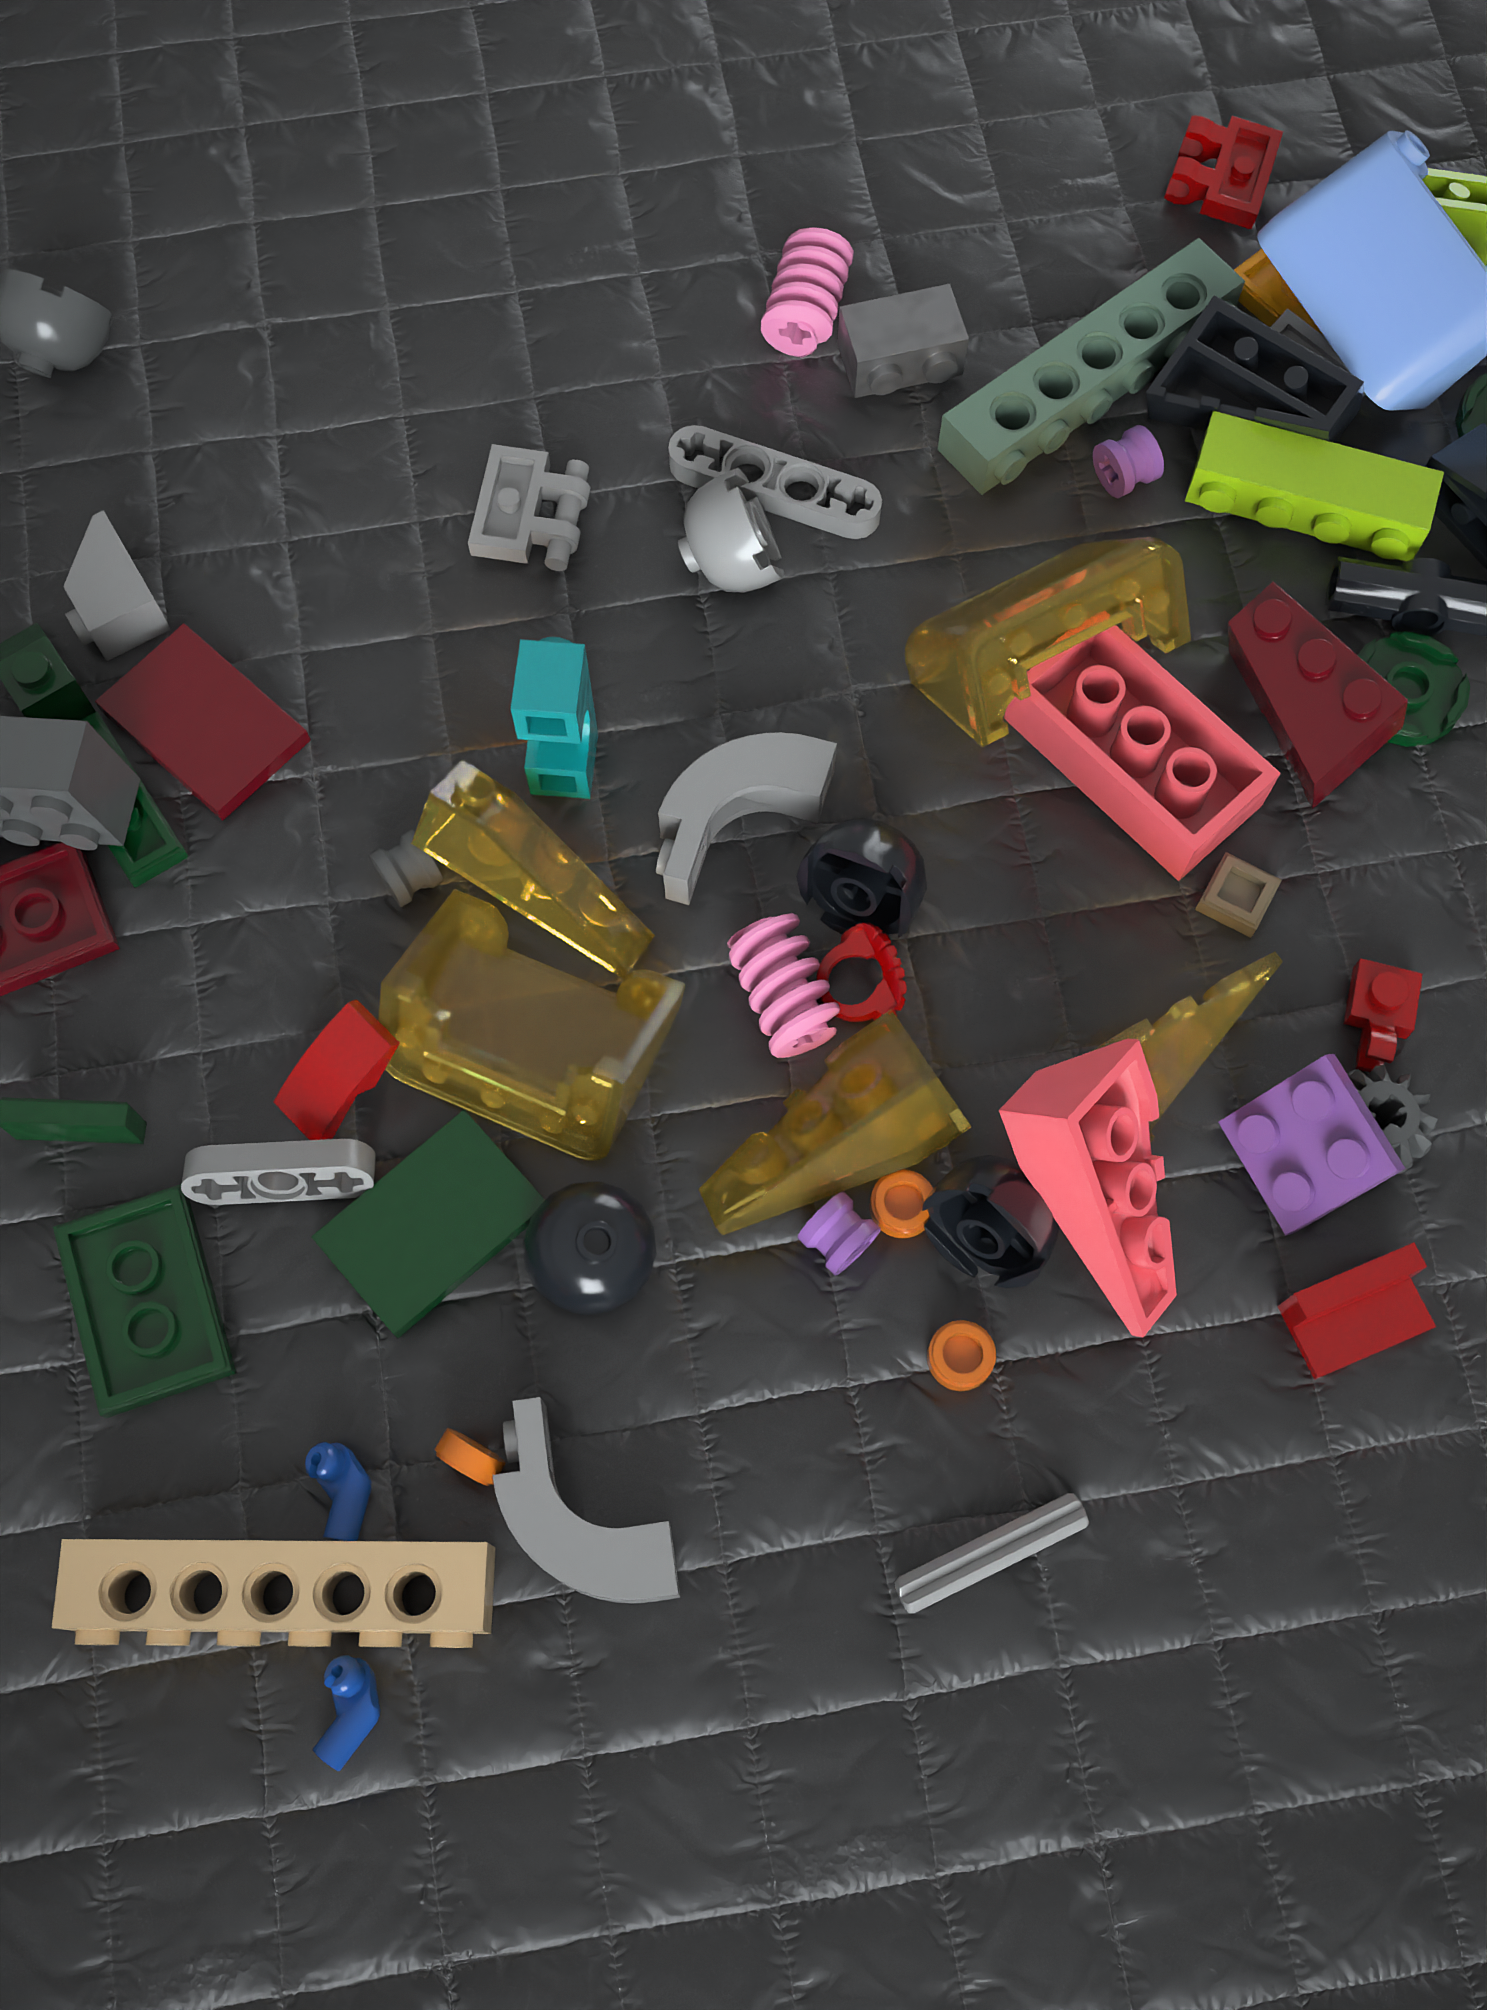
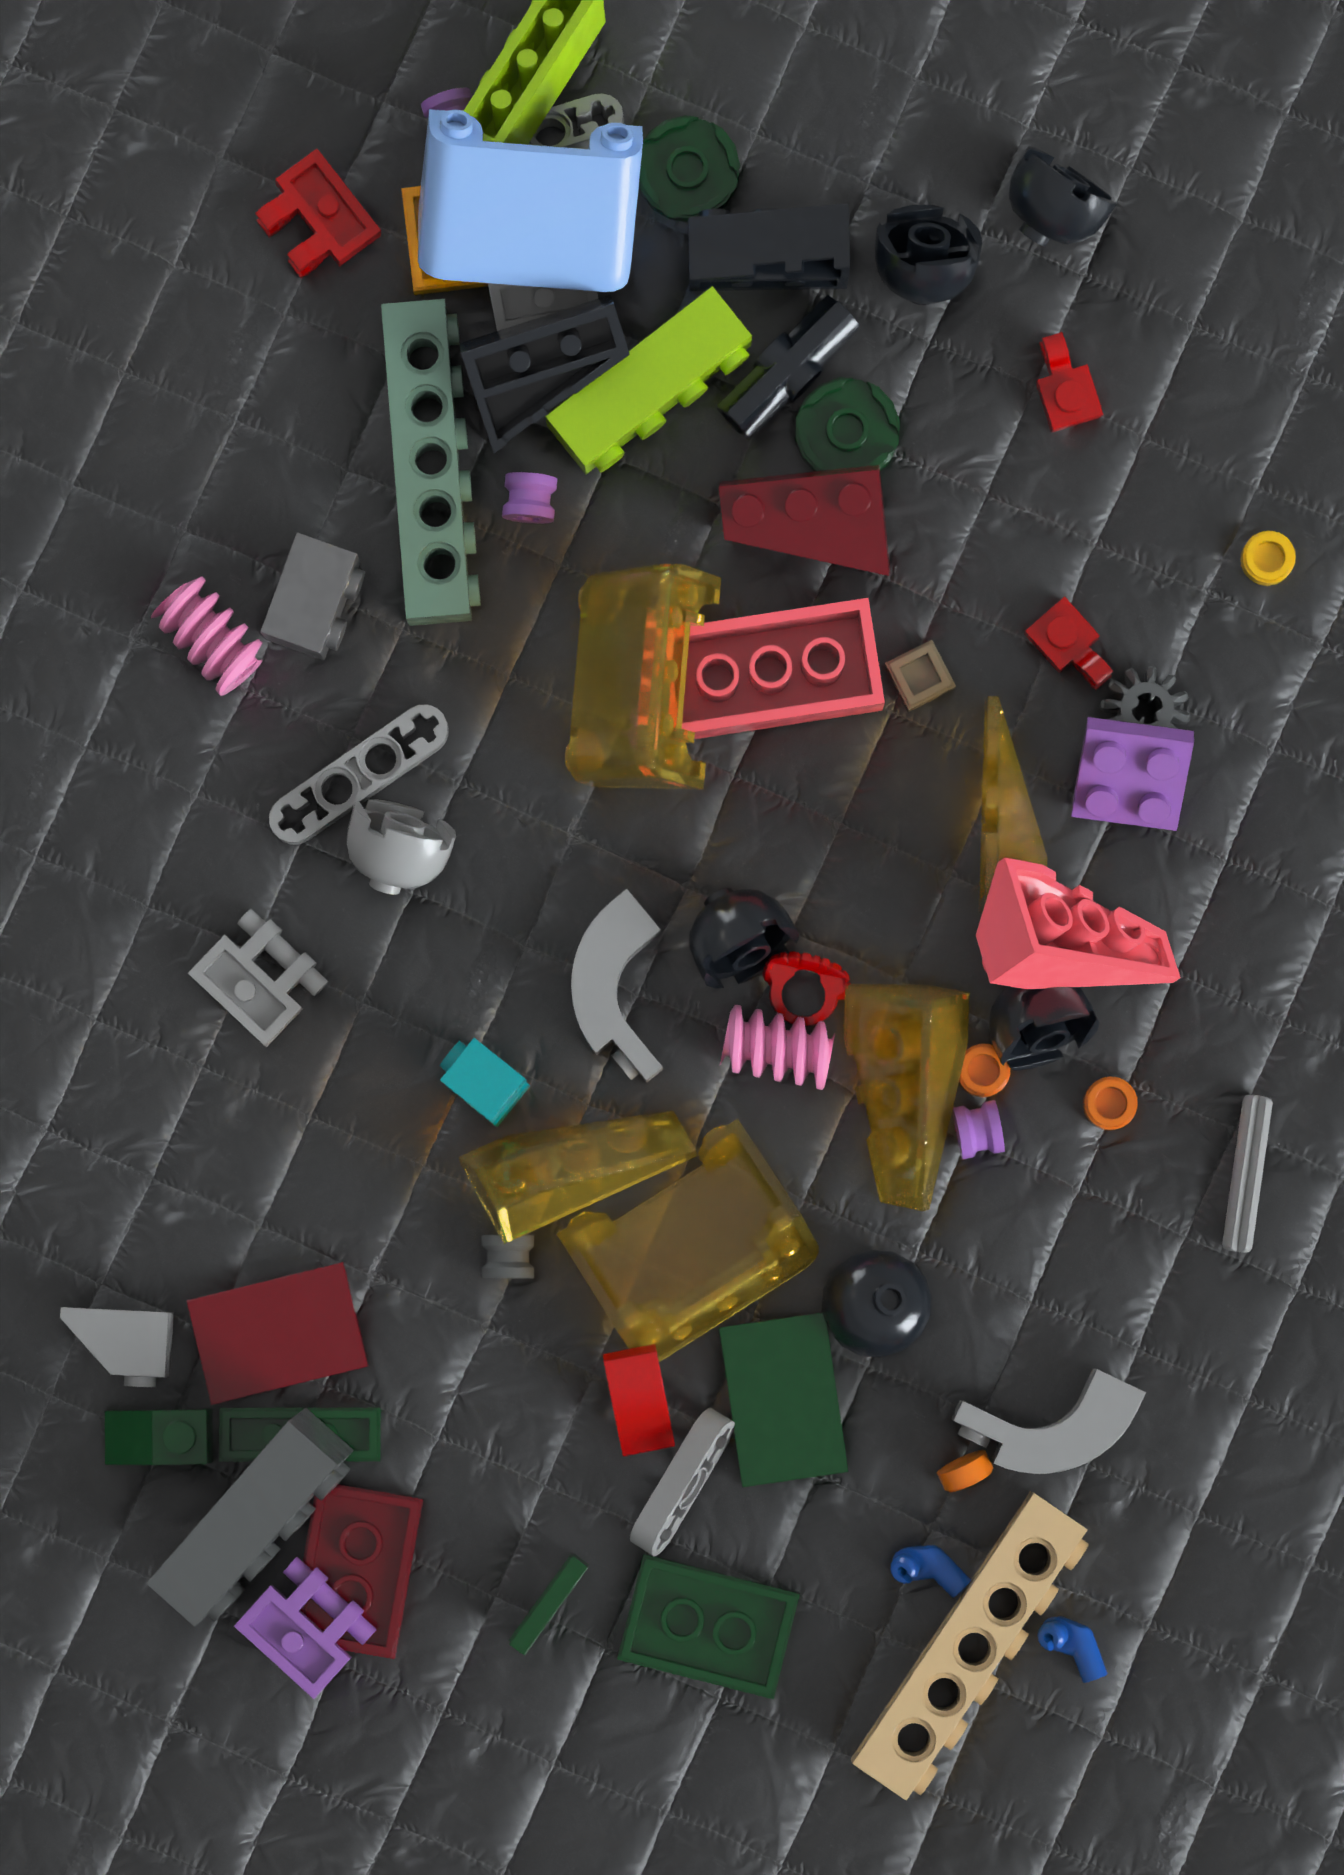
camera: 55 degrees left, 15 degrees up
(1358, 1312) = (1257, 821): red panel -> none

